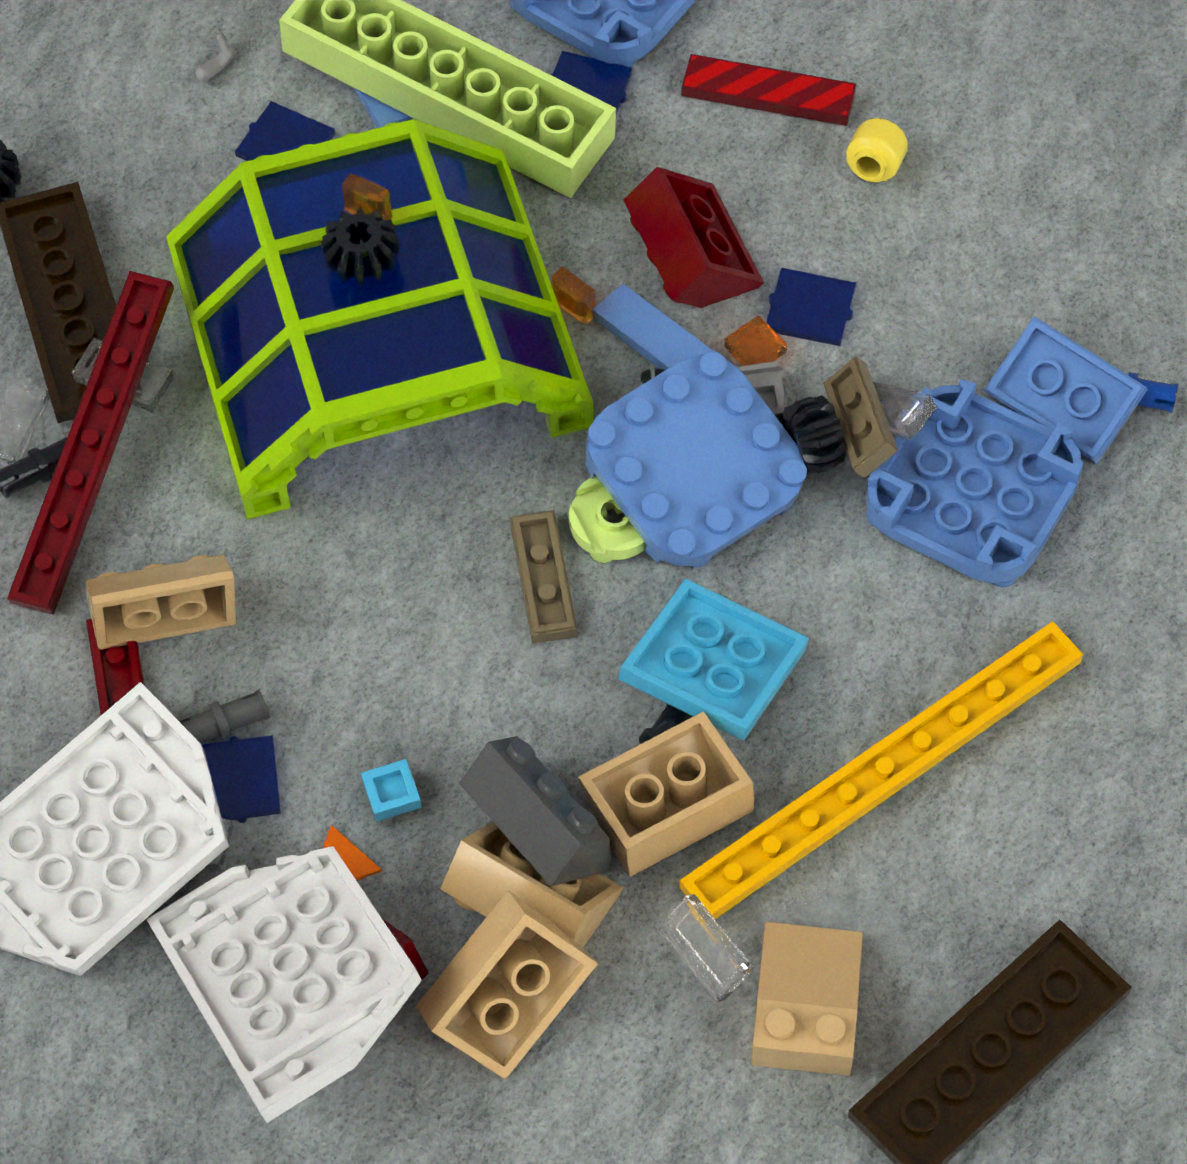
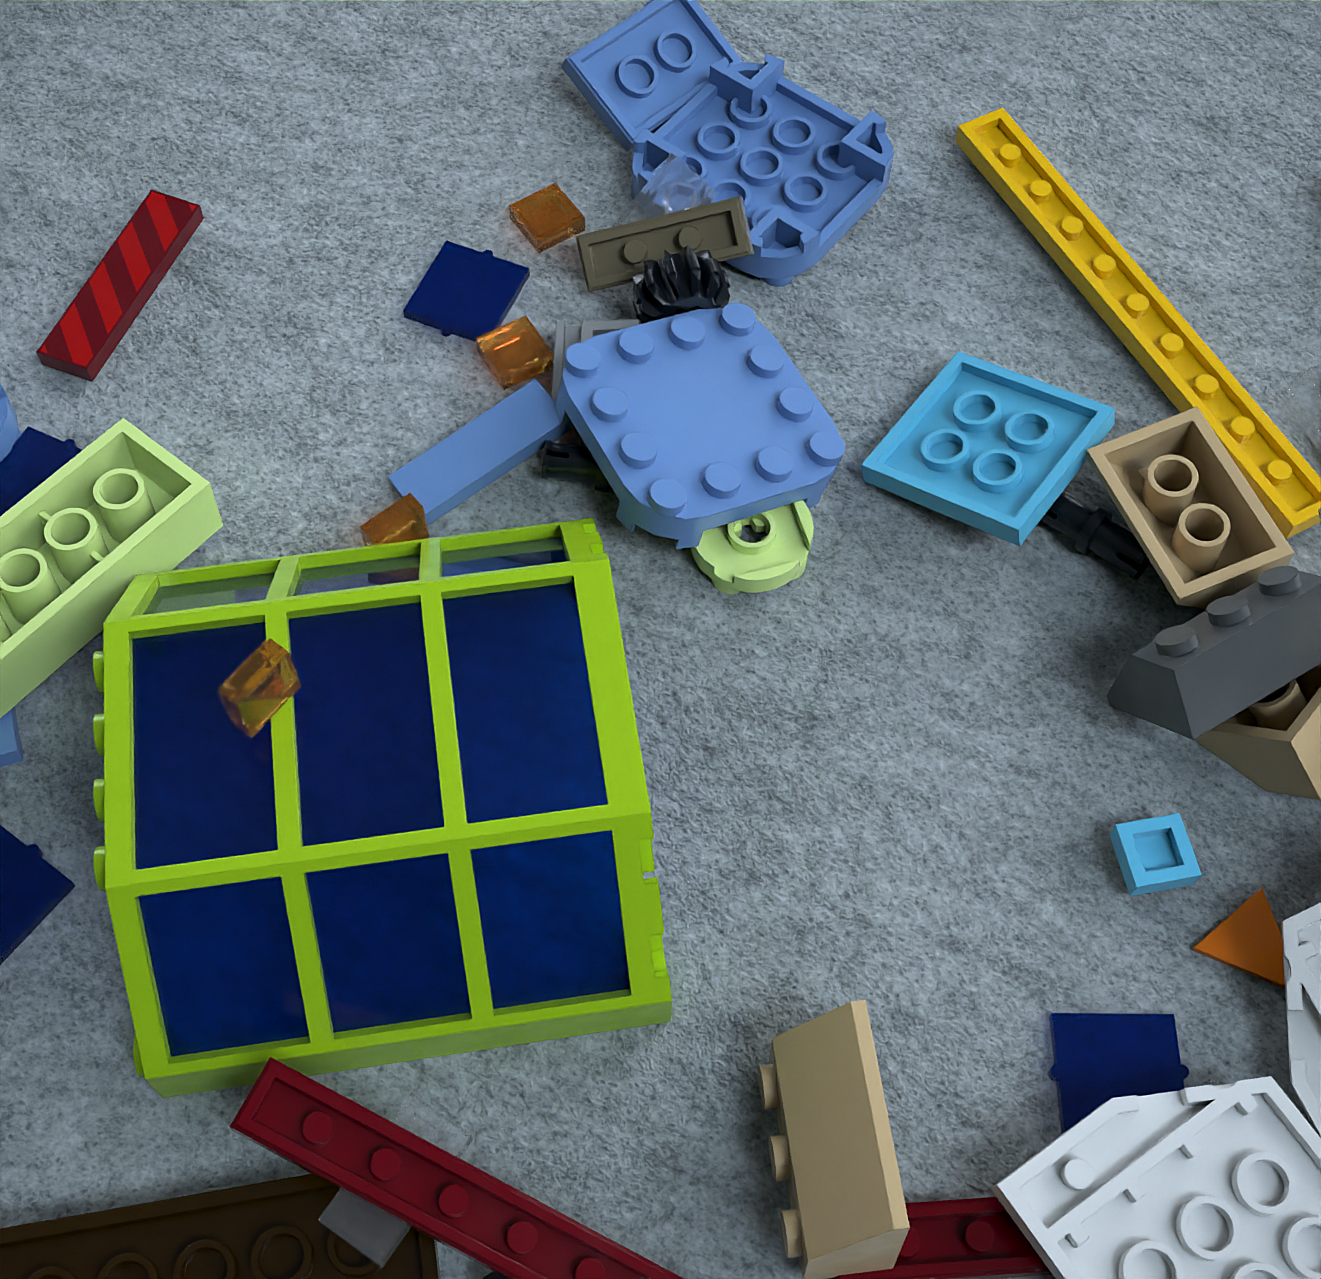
camera: 85 degrees left, 0 degrees up
(227, 717) = (1030, 1076): dark grey pin -> none
(360, 245) = (344, 707): black gear -> none
(543, 577) = (825, 633): dark tan tile -> none
(691, 239) = (341, 394): dark red slope -> none
(877, 150) = (264, 180): light yellow head -> none
(895, 346) = (547, 217): none -> clear orange tile

